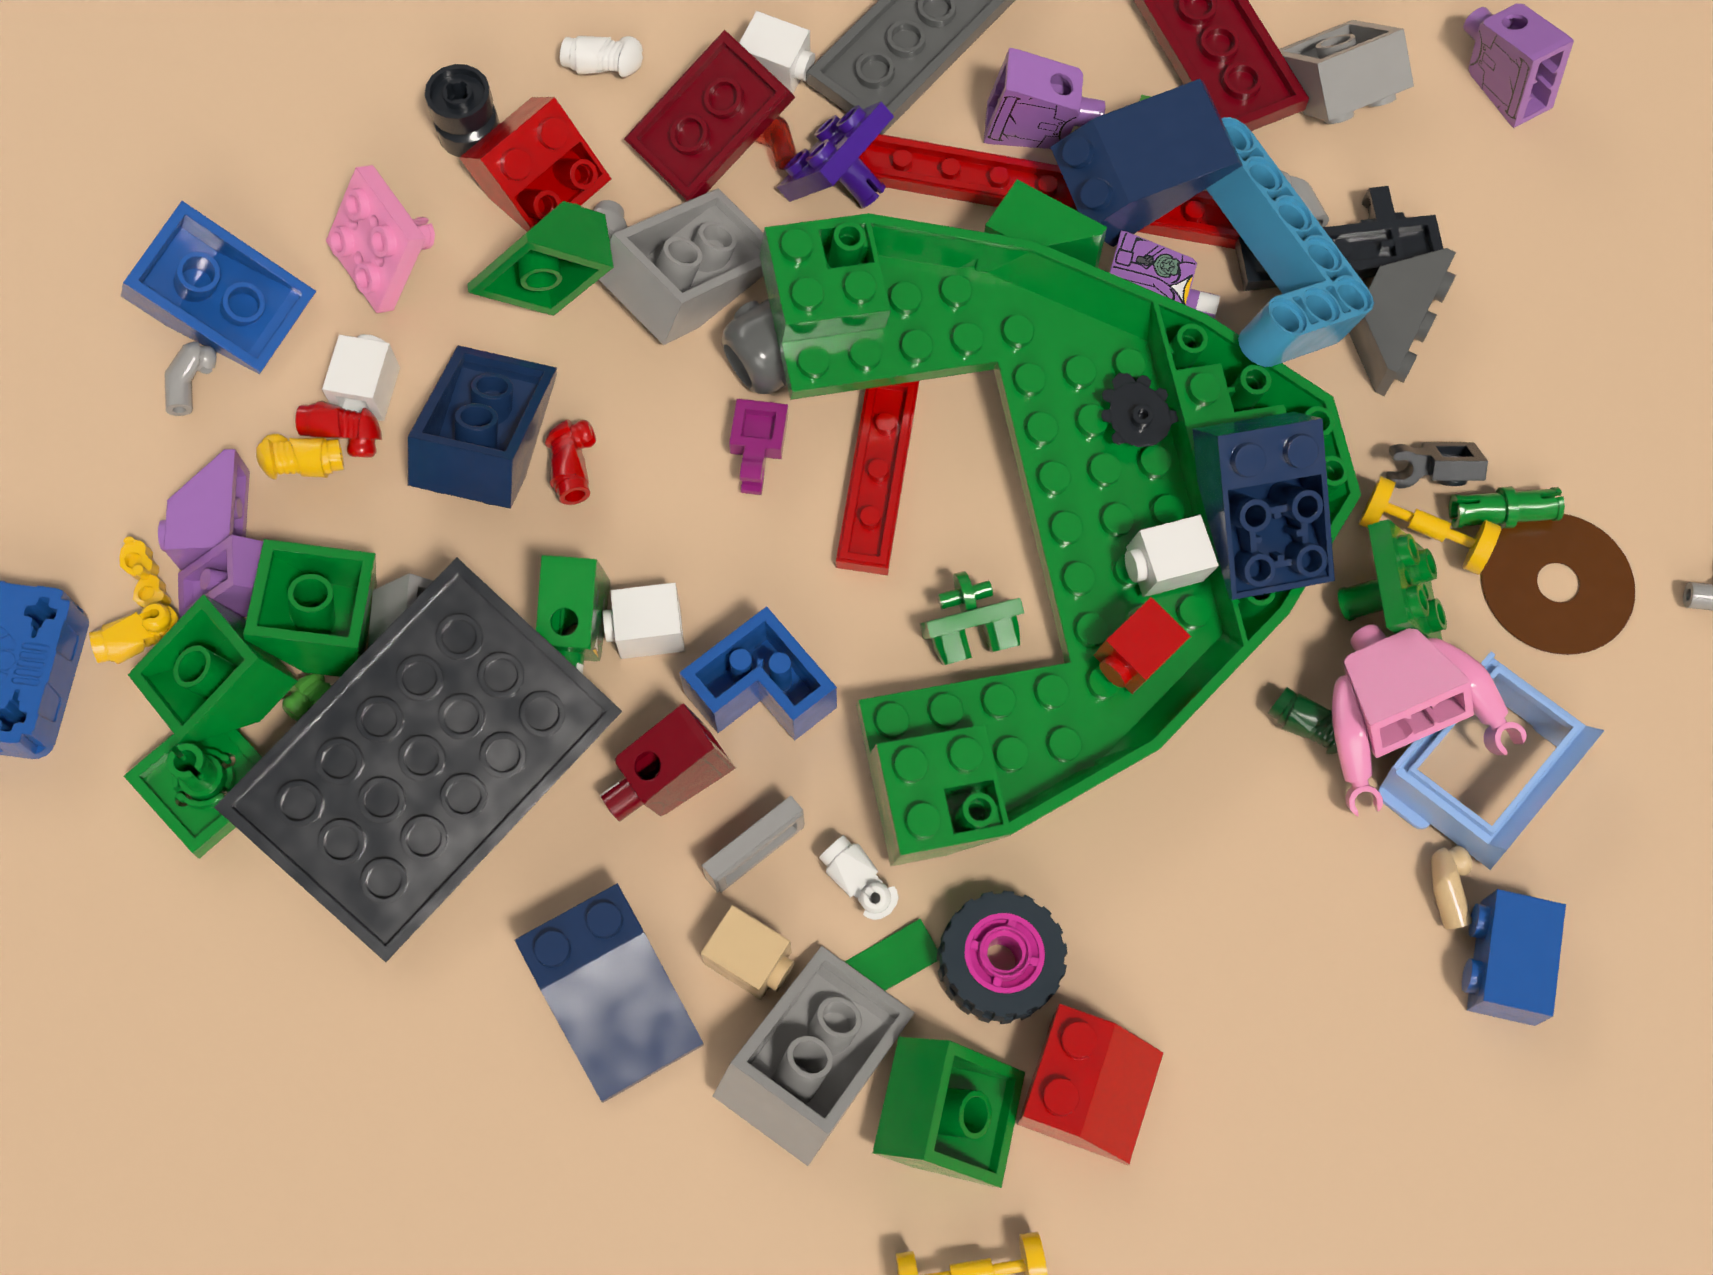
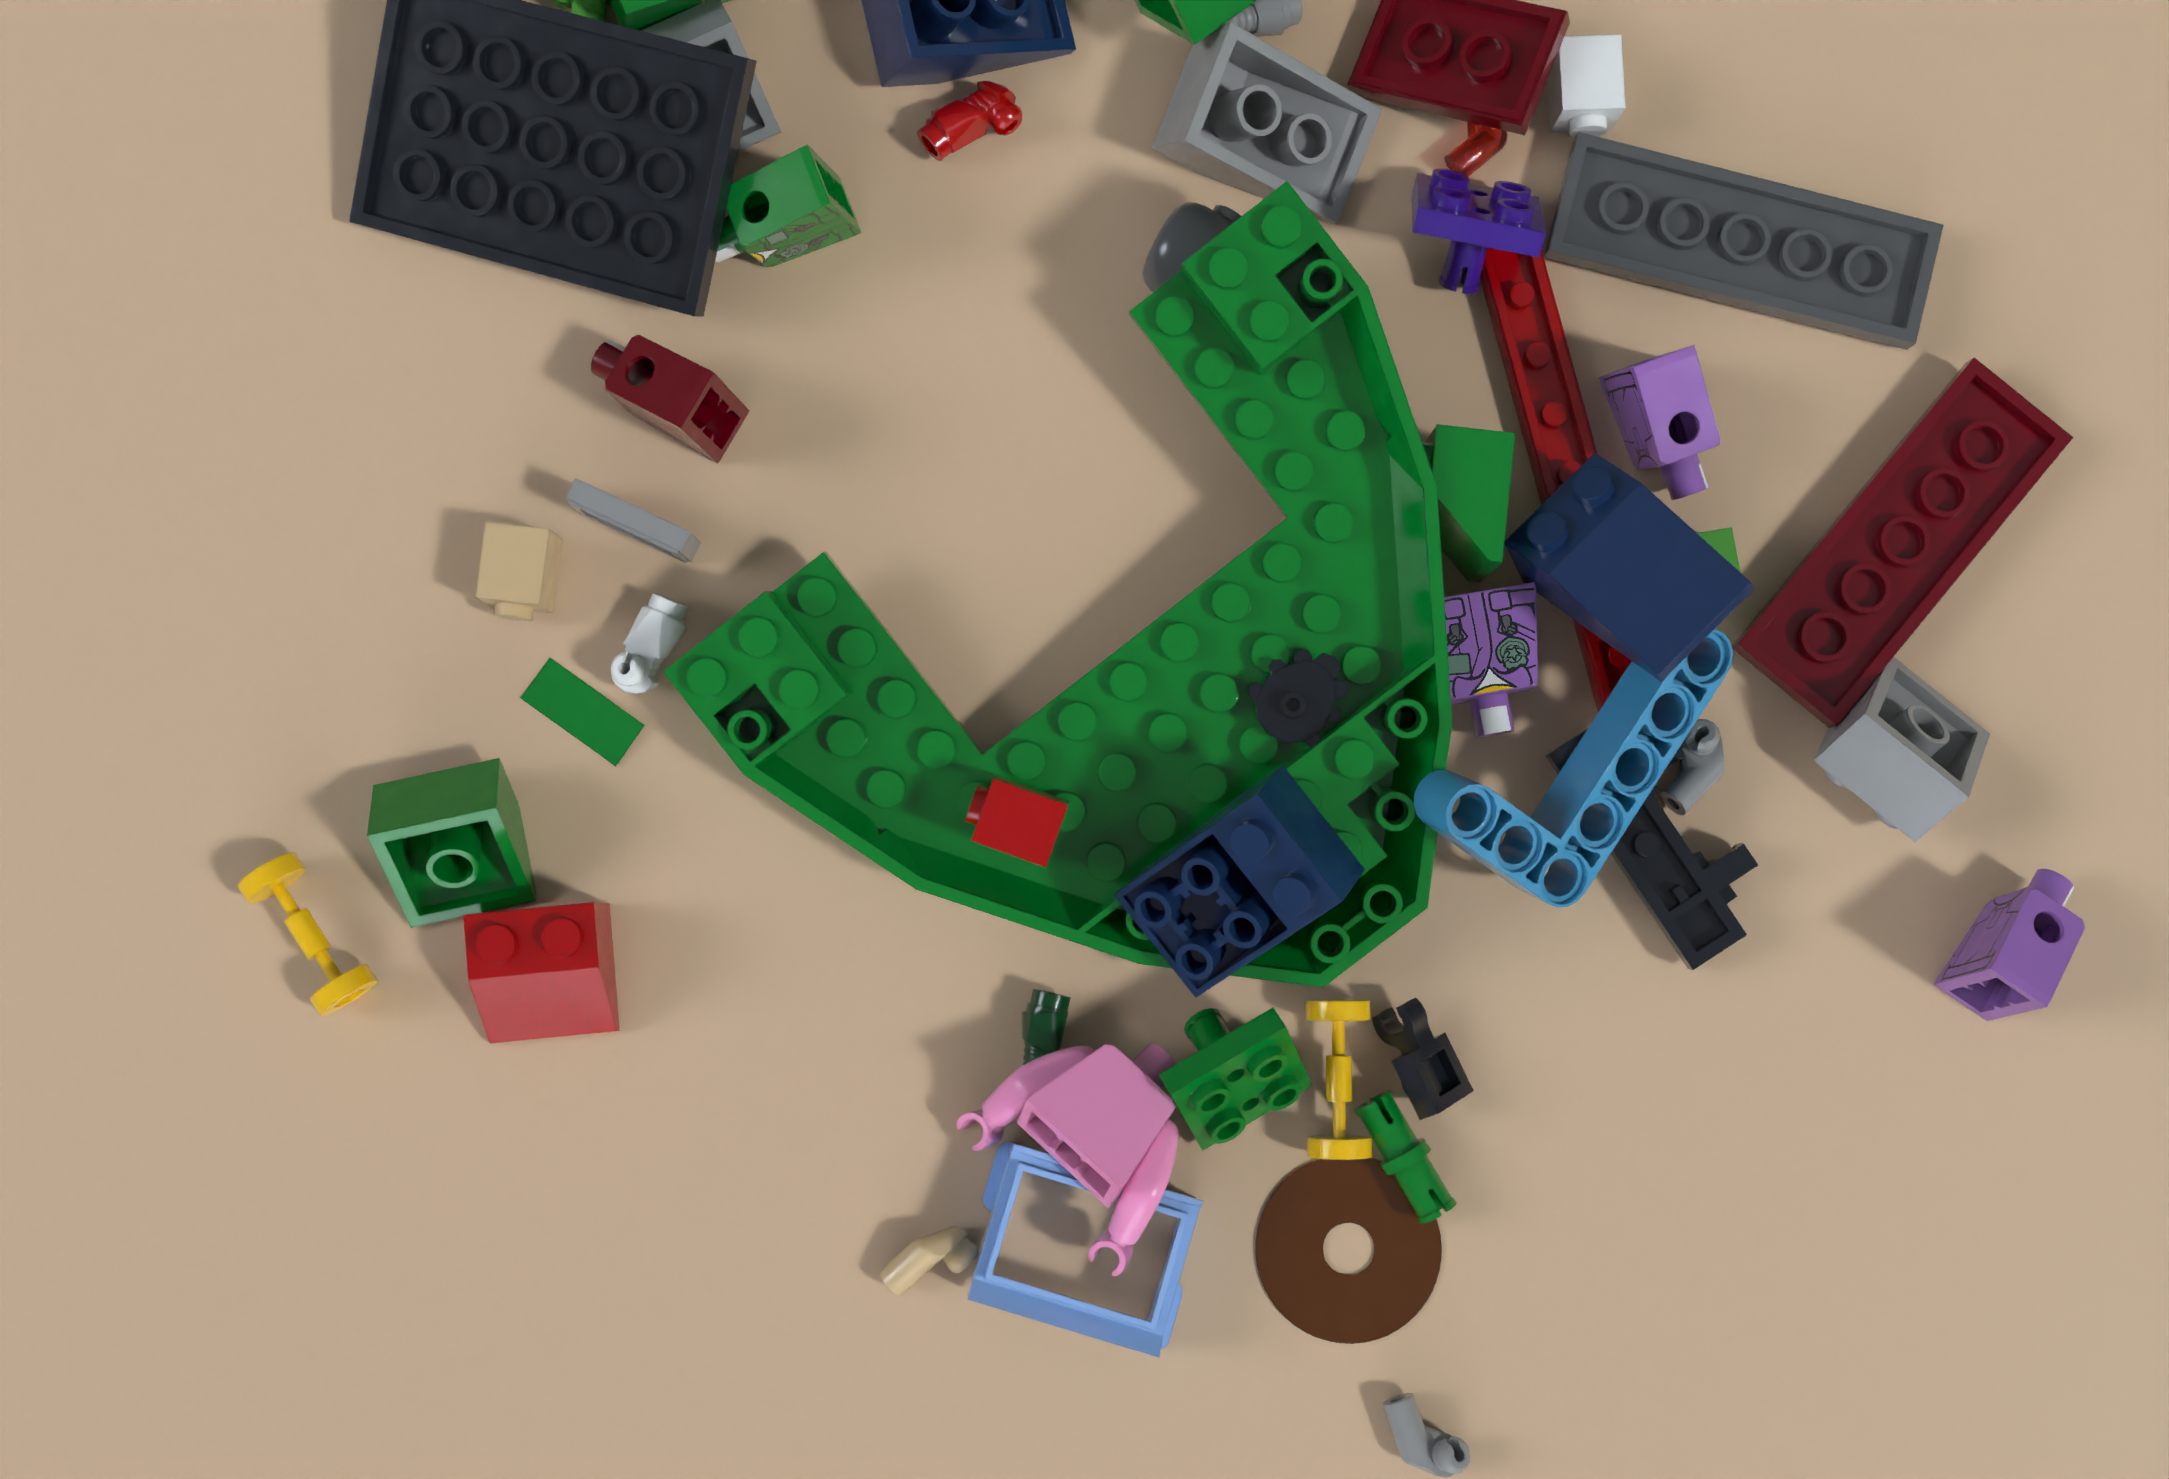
camera: 65 degrees right, 15 degrees up
(609, 992) = (419, 452): slope -> none
(645, 621) = (822, 291): white brick -> none
(757, 435) = (1094, 301): magenta plate -> none
(760, 665) = (822, 438): blue brick -> none
(812, 1055) = (452, 683): light grey slope -> none
(877, 478) = (1105, 456): red tile -> none
(997, 620) = (992, 623): hips -> none
(1021, 928) = (592, 824): black wheel -> none
(1170, 556) = (1138, 806): white brick -> none
(1400, 315) = (1594, 941): dark grey slope -> none
(1514, 957) = (875, 1352): blue brick -> none

